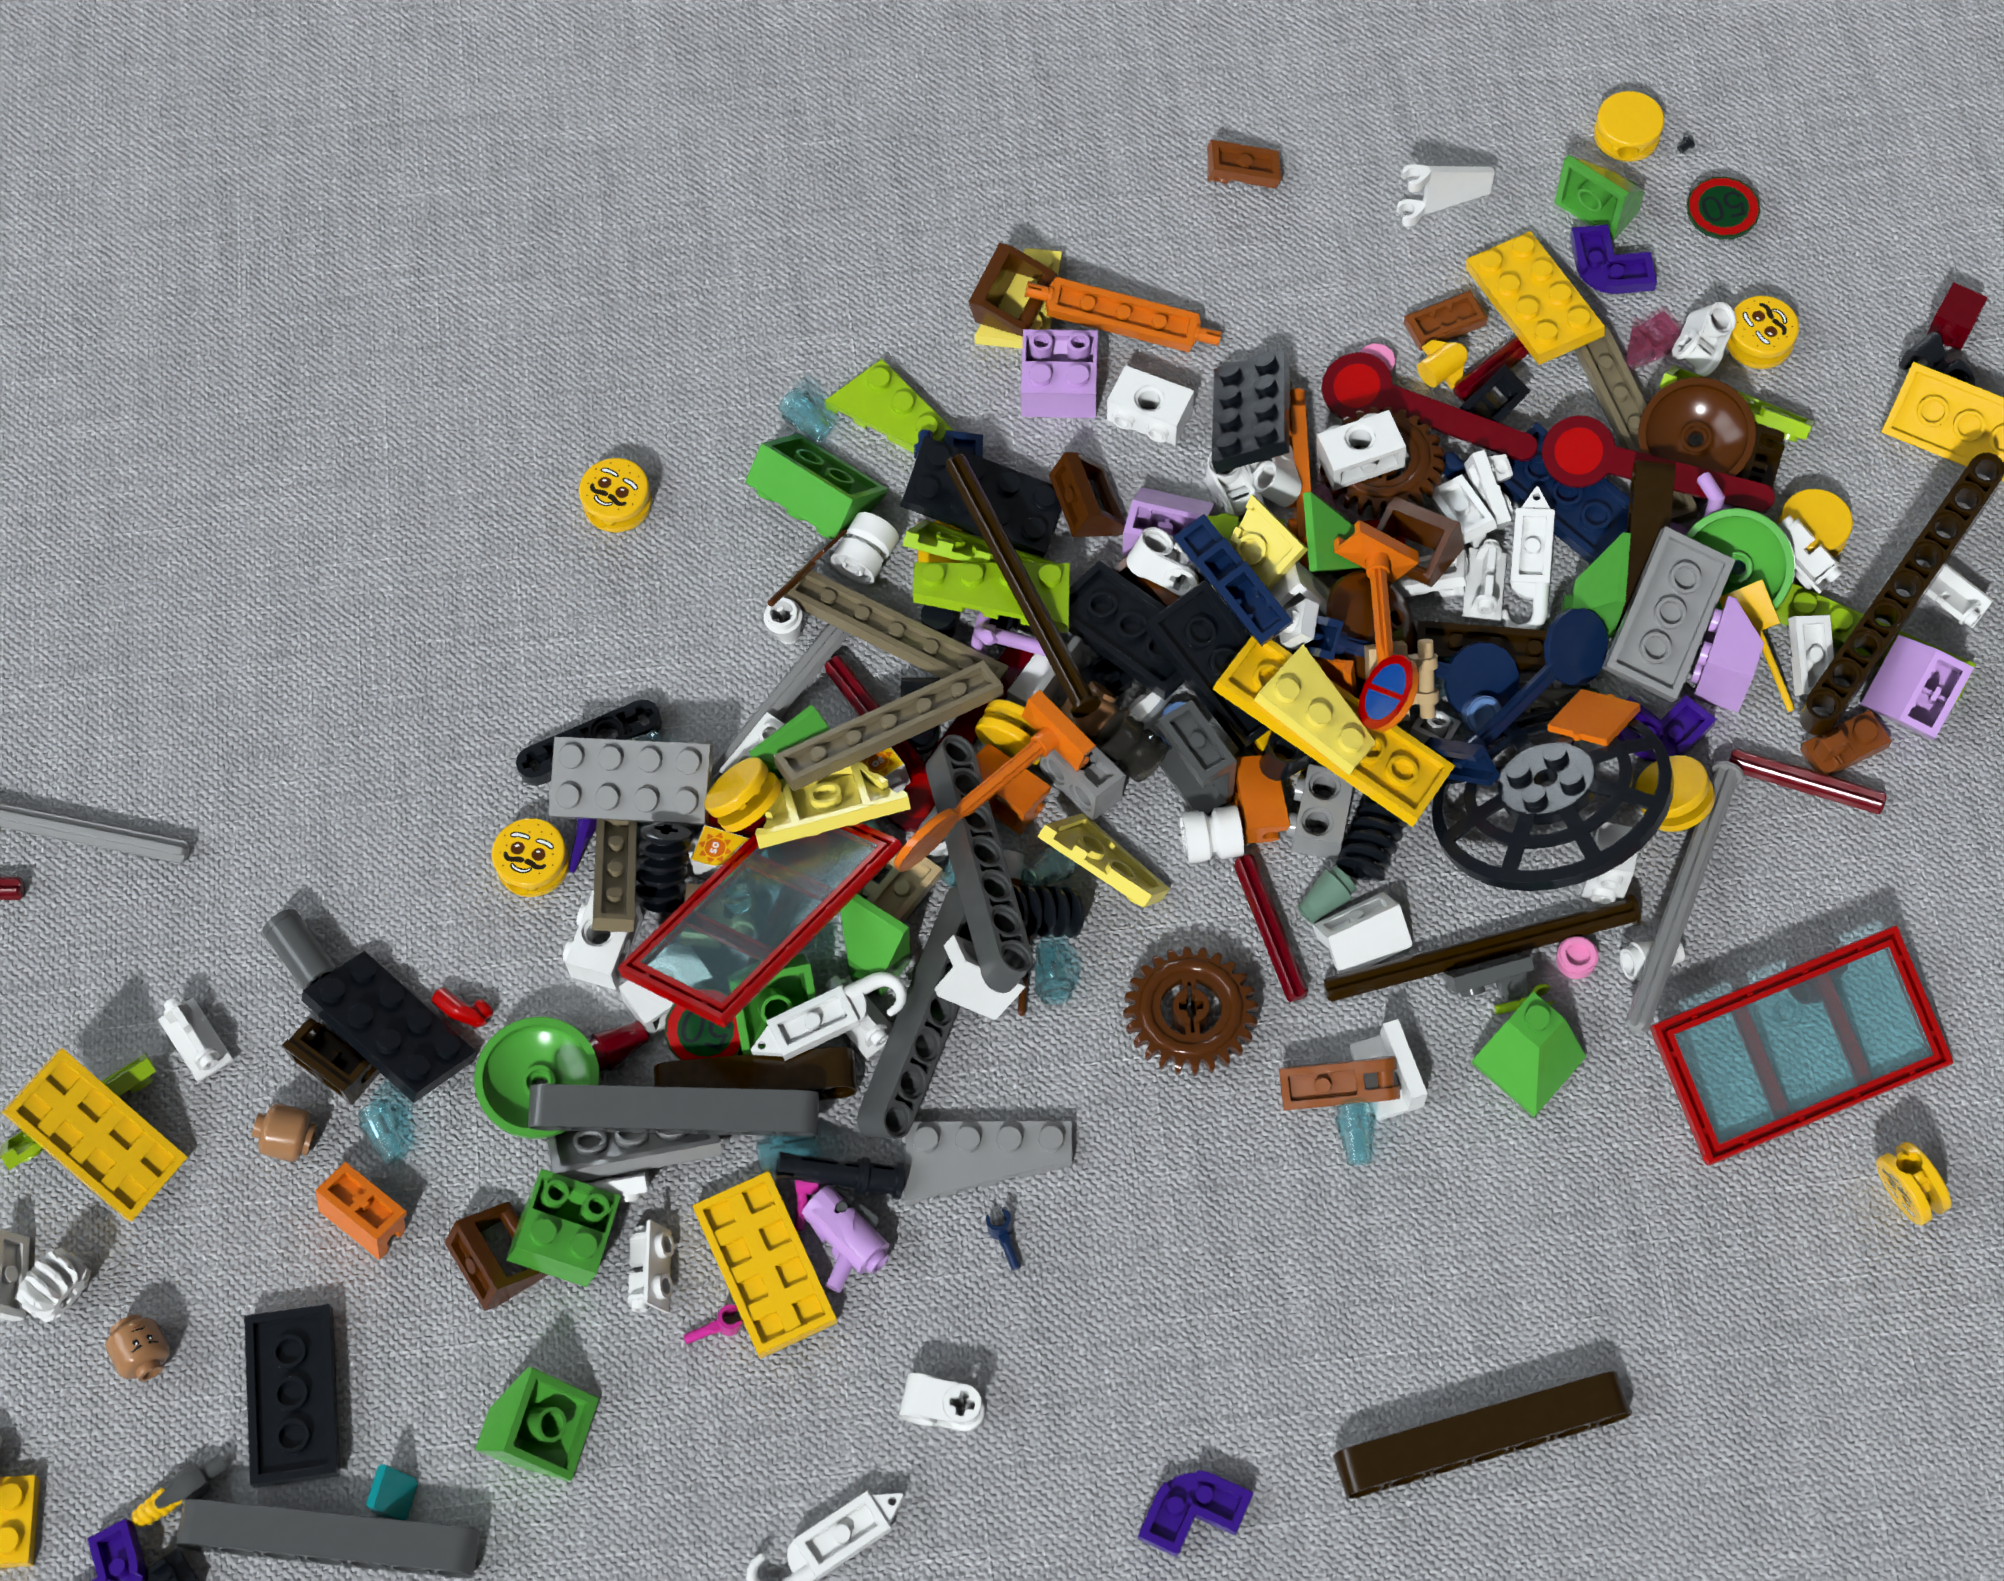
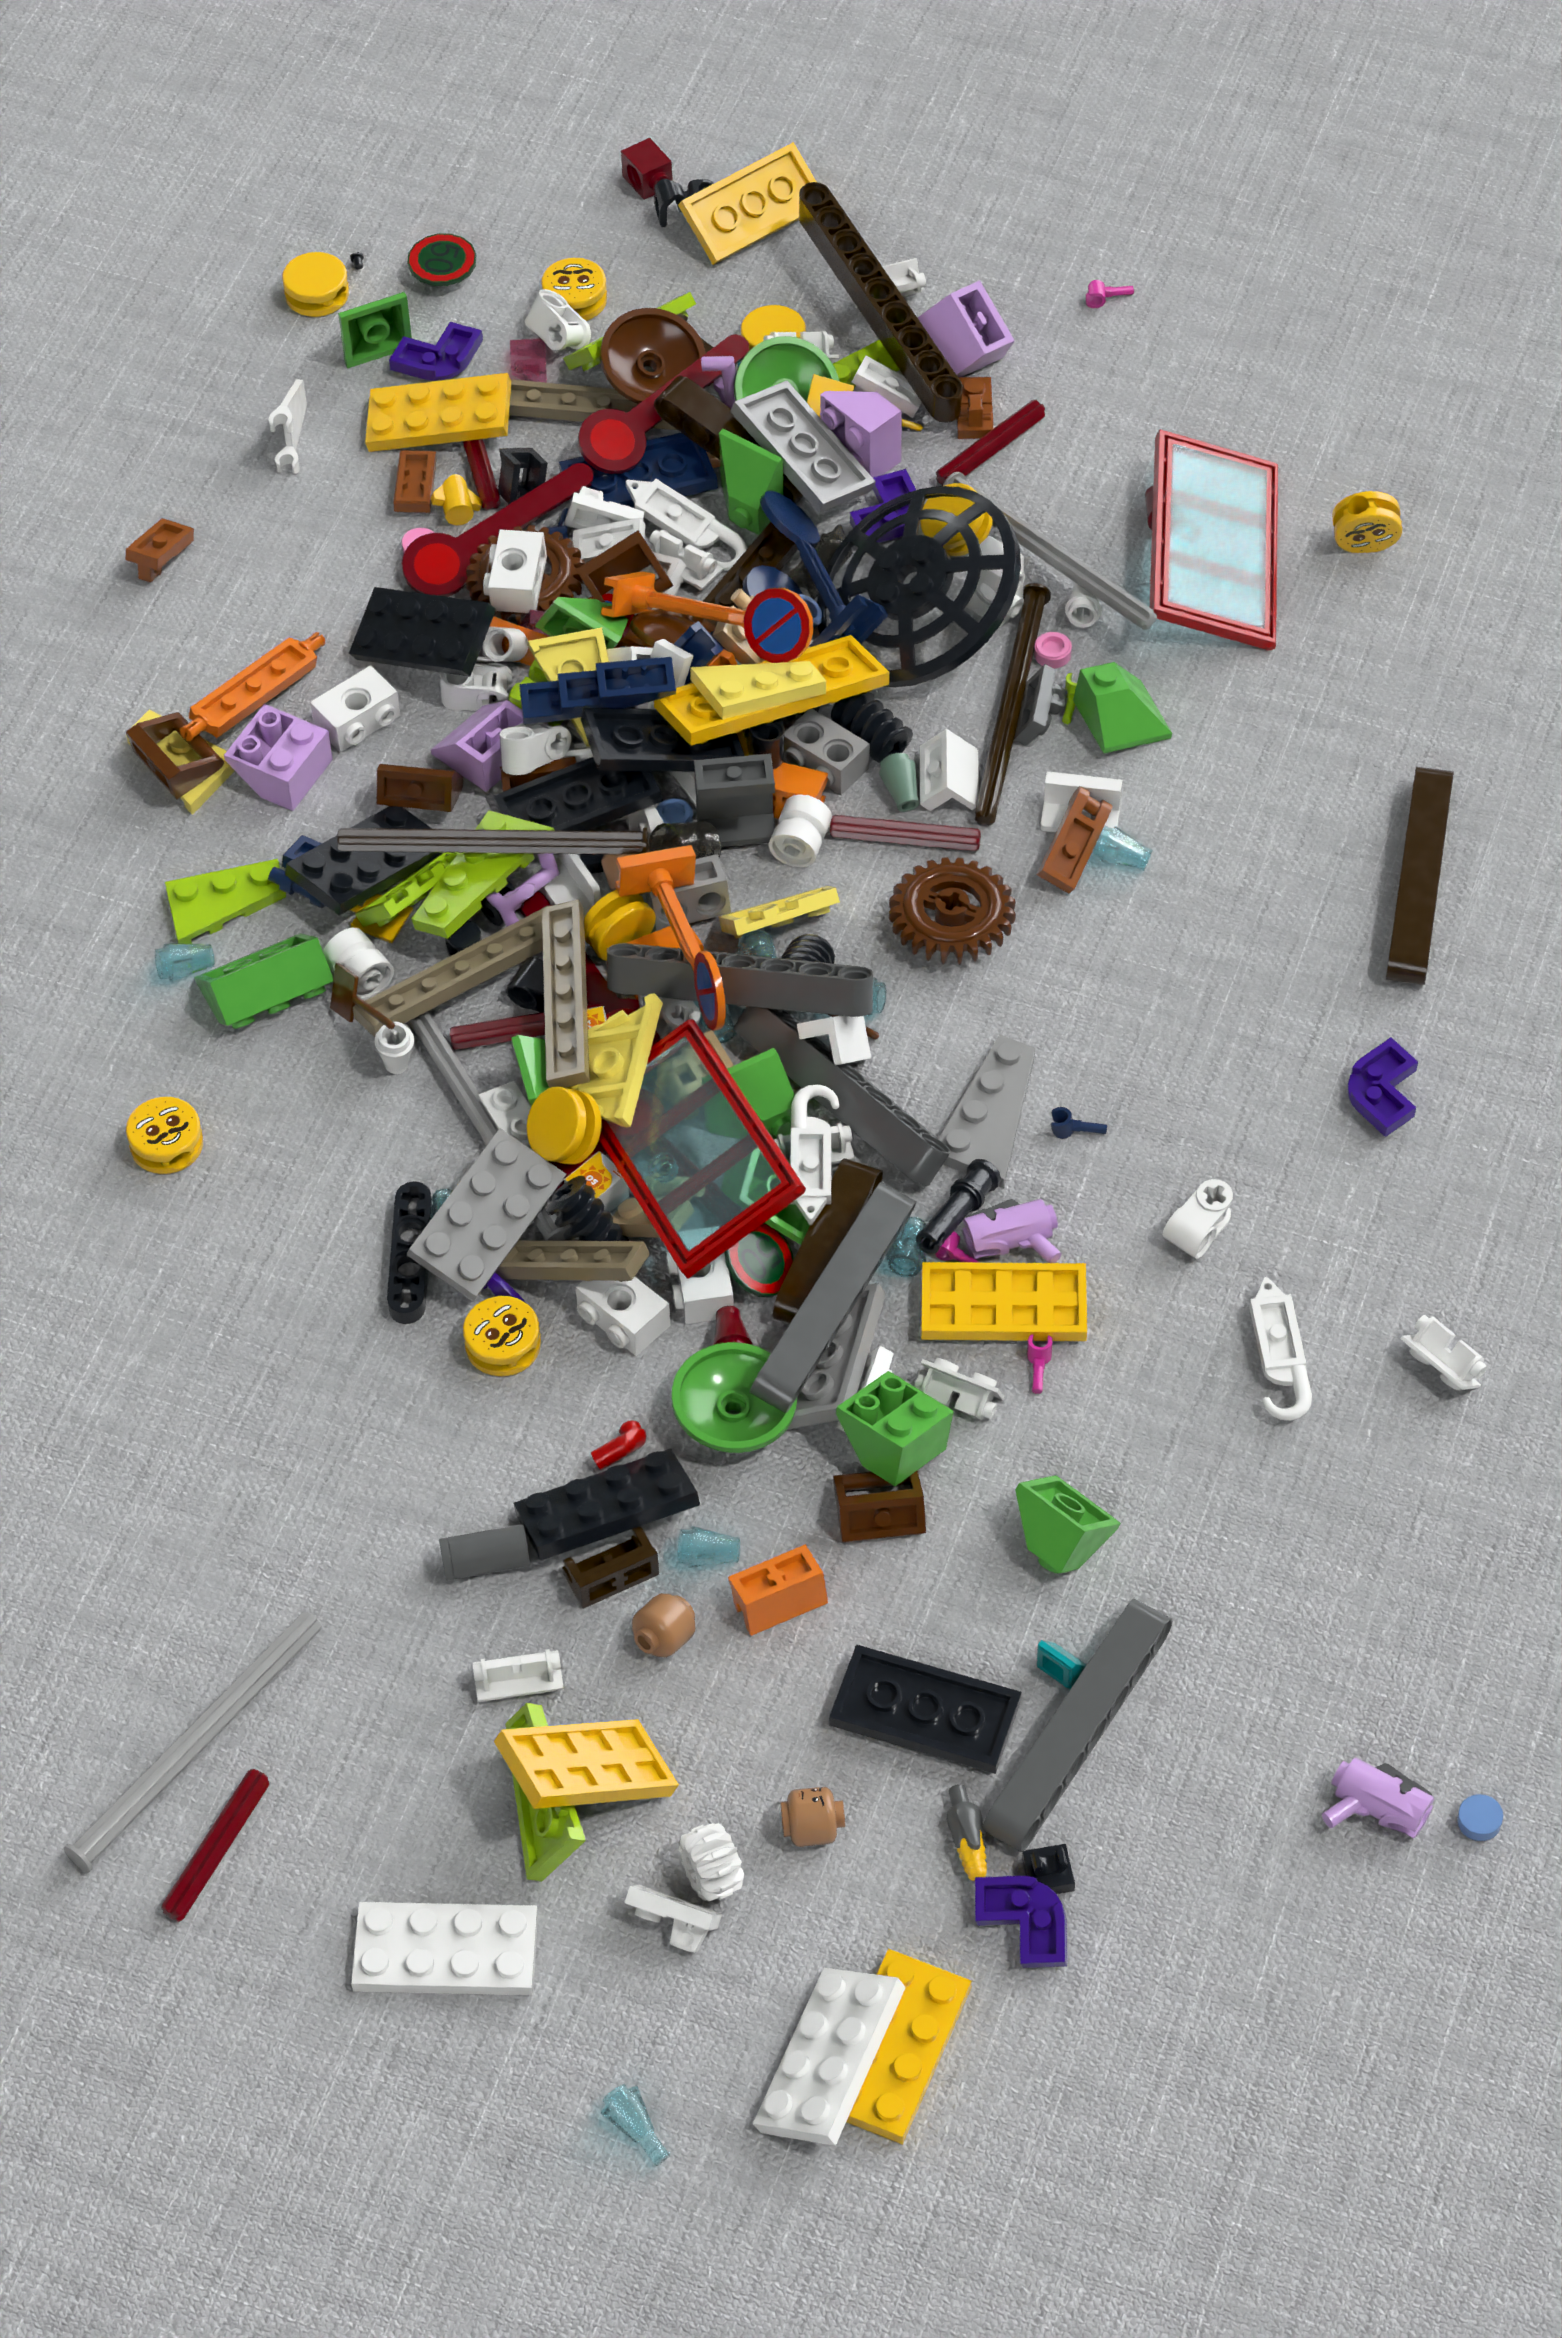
camera: 65 degrees left, 10 degrees down
(1593, 717) = (867, 527): orange piece -> none

